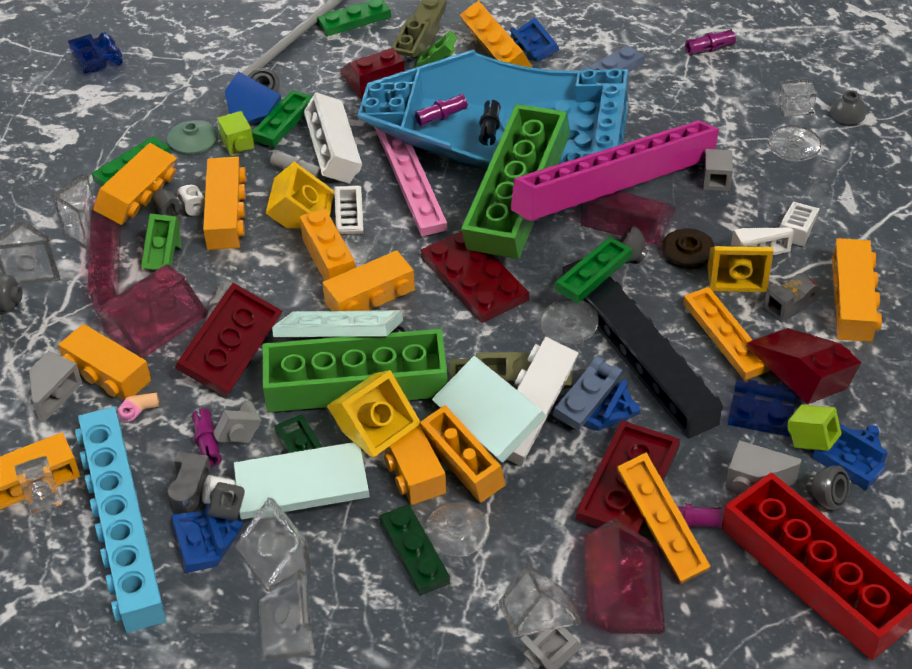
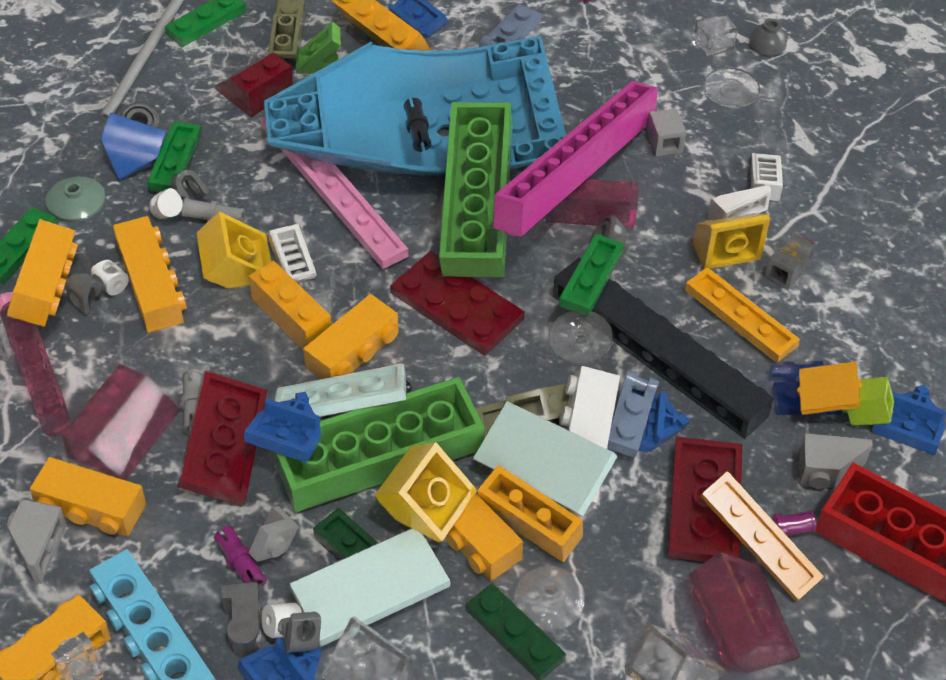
camera: 20 degrees left, 5 degrees up
(136, 404) = (143, 537): arm -> none
(161, 241) = (97, 338): bright green slope -> none
(235, 132) = (128, 185): lime brick -> none
(261, 149) = (169, 201): none -> leg
(277, 338) = (286, 428): none -> blue slope
(332, 138) = (243, 172): white brick -> none
(441, 110) = (357, 118): magenta pin -> none
(687, 247) = (667, 226): dark brown wheel -> none
(778, 407) = (829, 388): none -> light orange piece
(807, 363) = (833, 329): dark red slope -> none
(830, 487) = (903, 462): dark grey brick -> none
(855, 290) = (850, 240): light orange brick -> none

